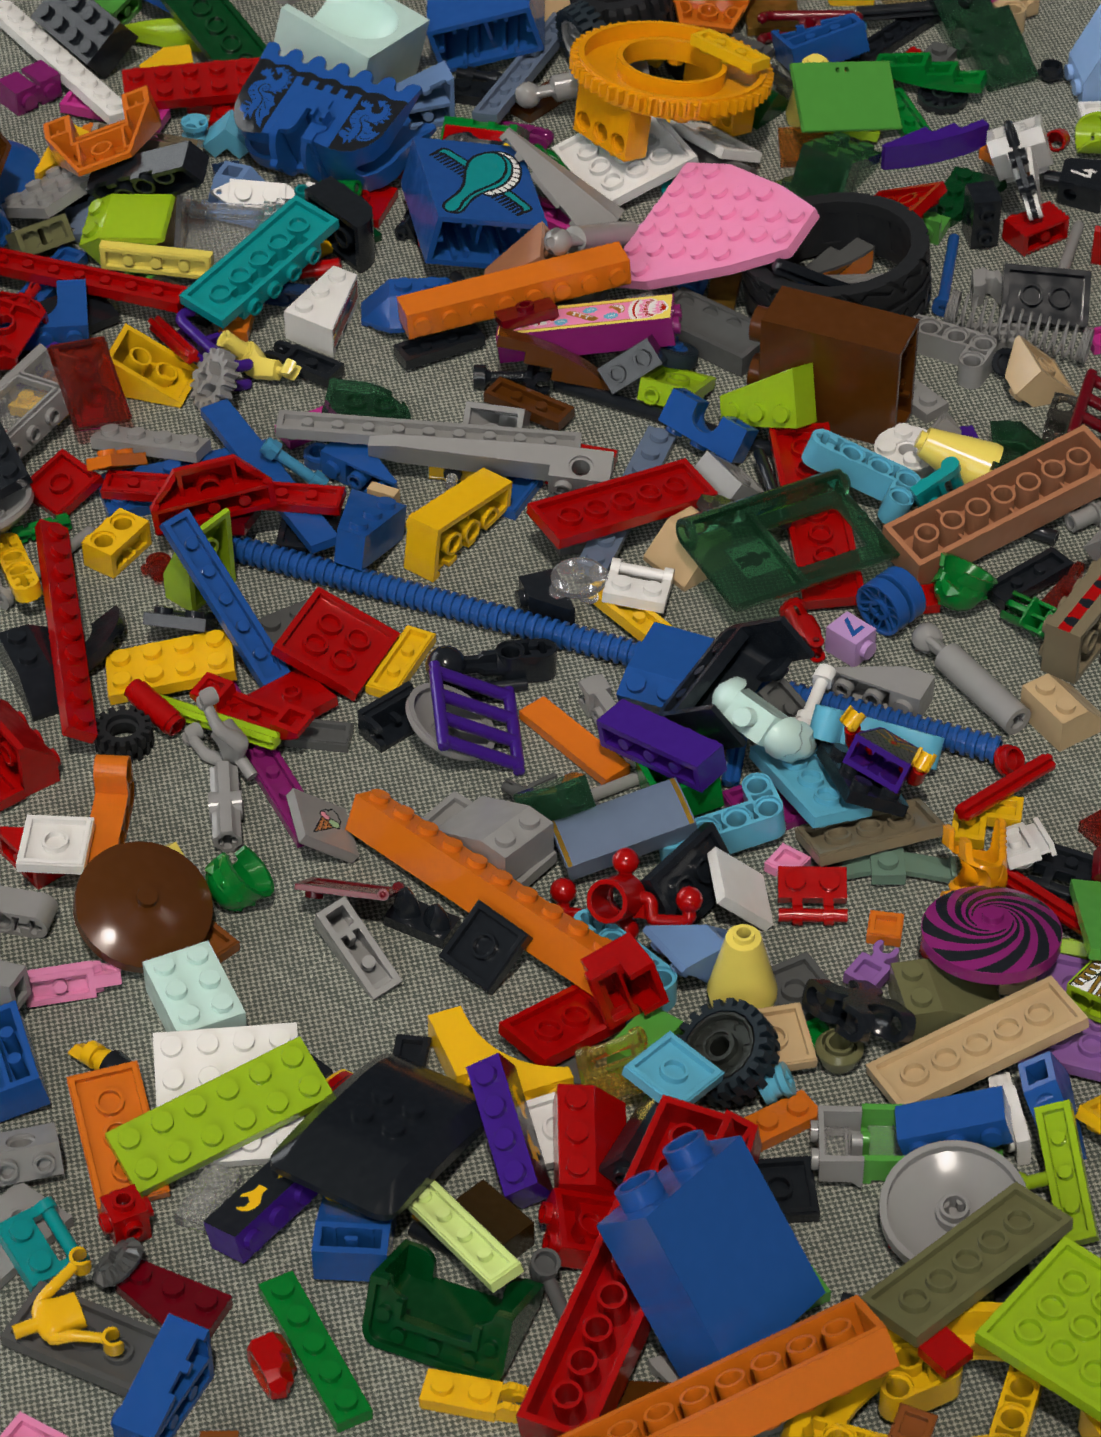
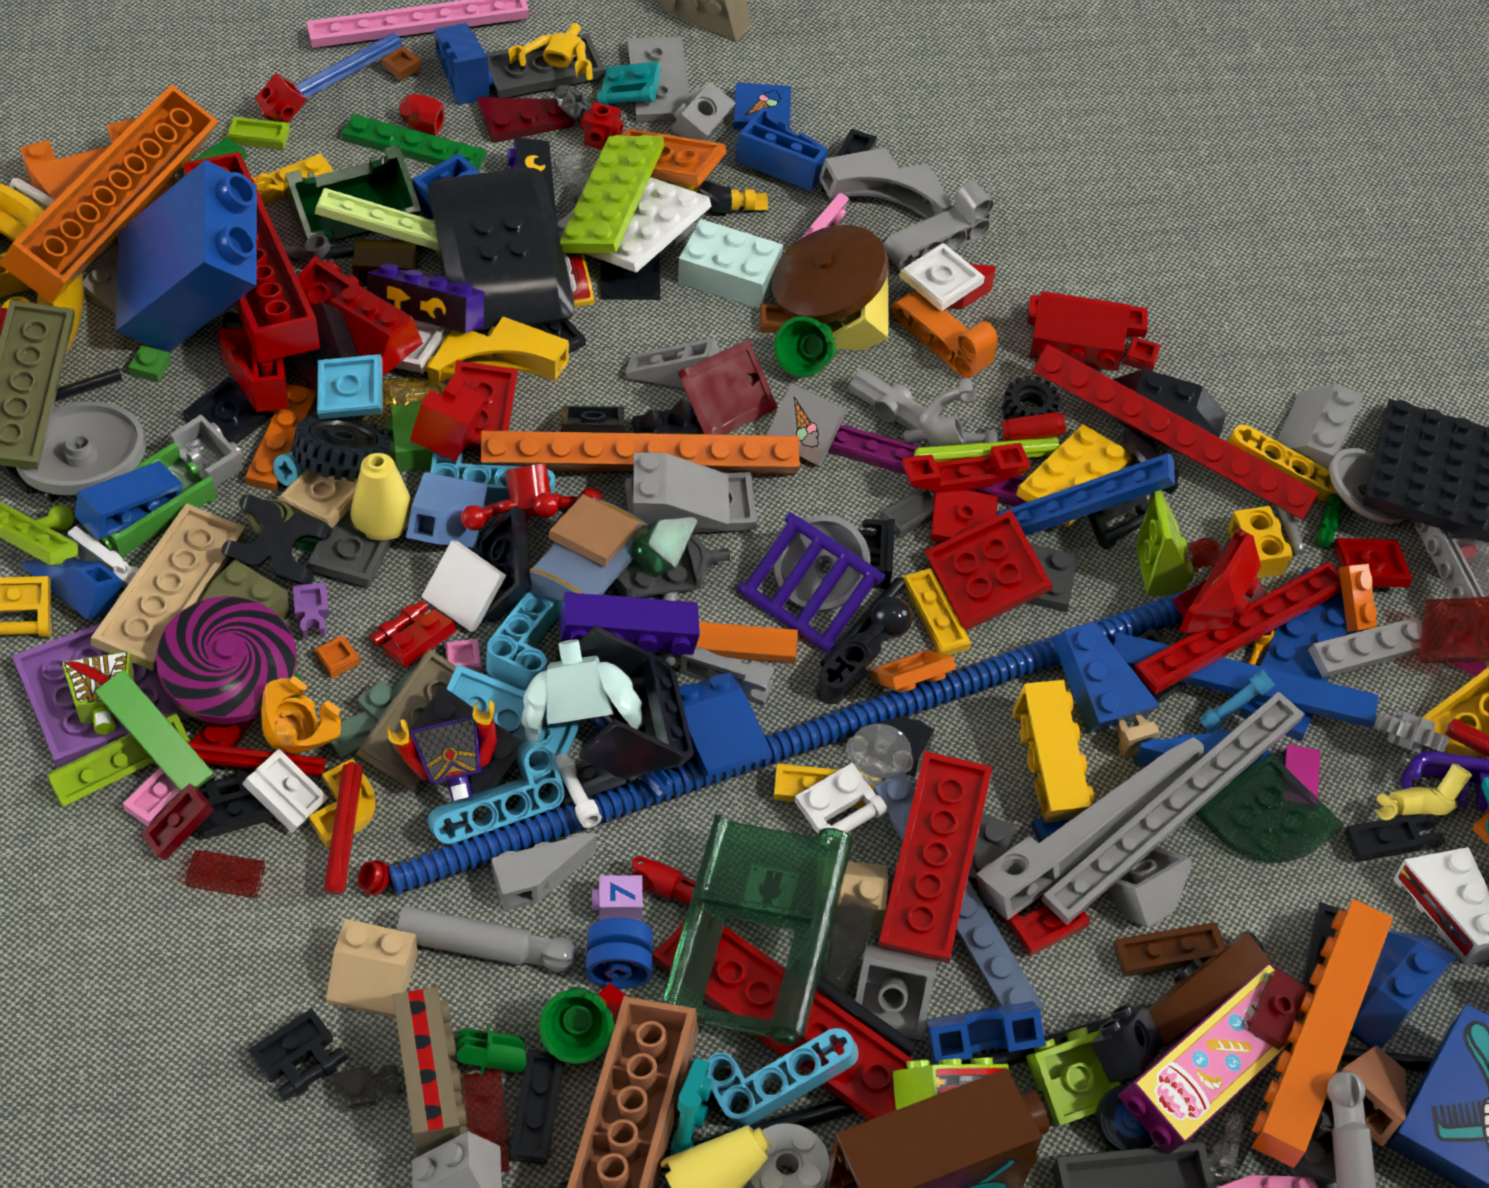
camera: 130 degrees right, 10 degrees up
(480, 619) = (911, 669): none -> orange plate
(608, 823) = (593, 530): none -> medium nougat tile

